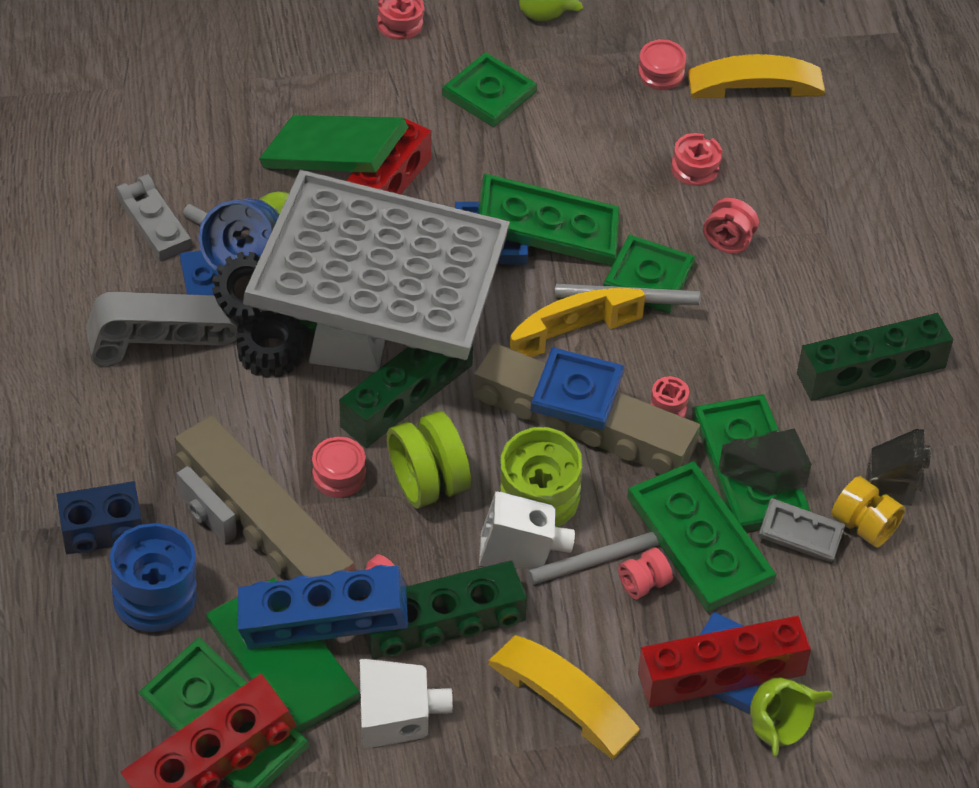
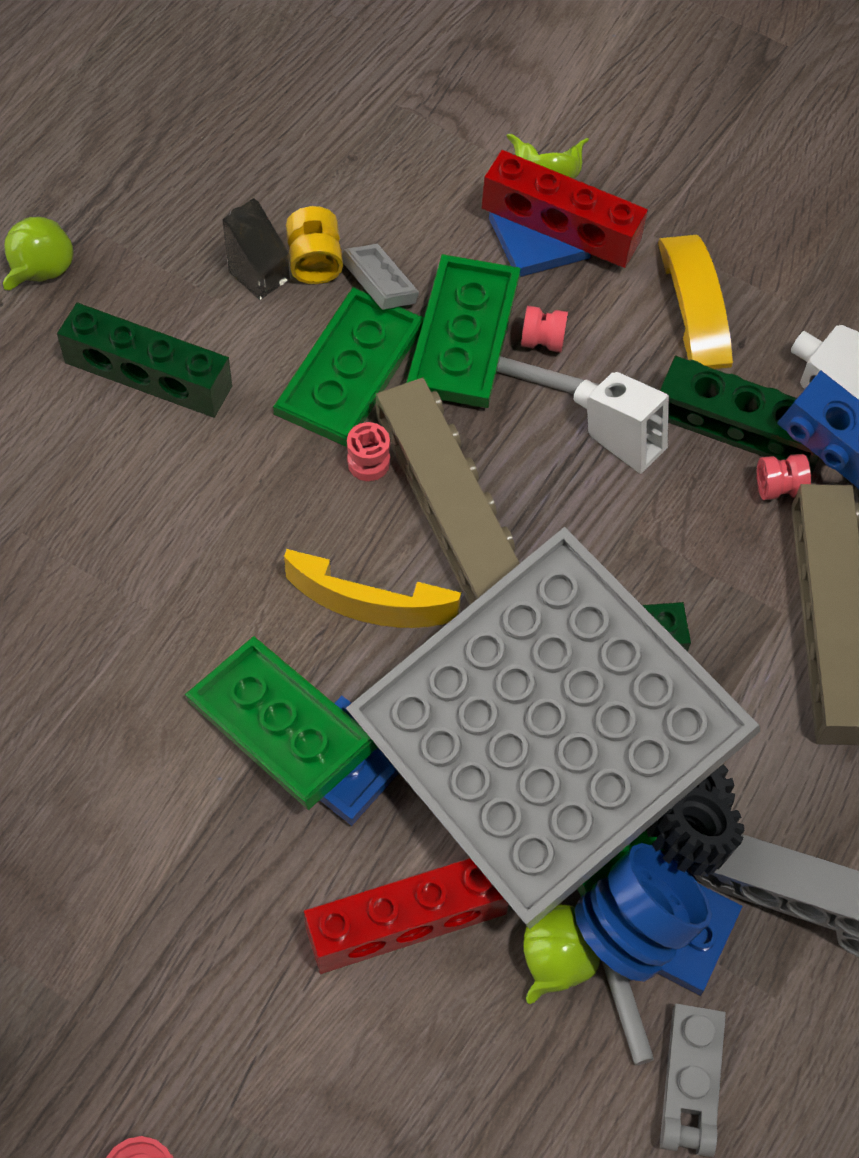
camera: 140 degrees left, 10 degrees up
(334, 143) = (423, 991): green tile -> none
(339, 467) = (727, 608): coral wheel -> none
(428, 459) = (654, 528): lime wheel -> none
(489, 89) = (149, 973): green tile -> none
(545, 469) = (565, 444): lime wheel -> none
(577, 388) = (454, 494): blue tile -> none
(650, 266) = (235, 604): green tile -> none
(659, 296) = (289, 585): light grey bar -> none
(696, 159) = (46, 690): coral wheel -> none
(731, 225) = (118, 571): coral wheel -> none
(767, 462) = (352, 326): clear smoke slope -> none

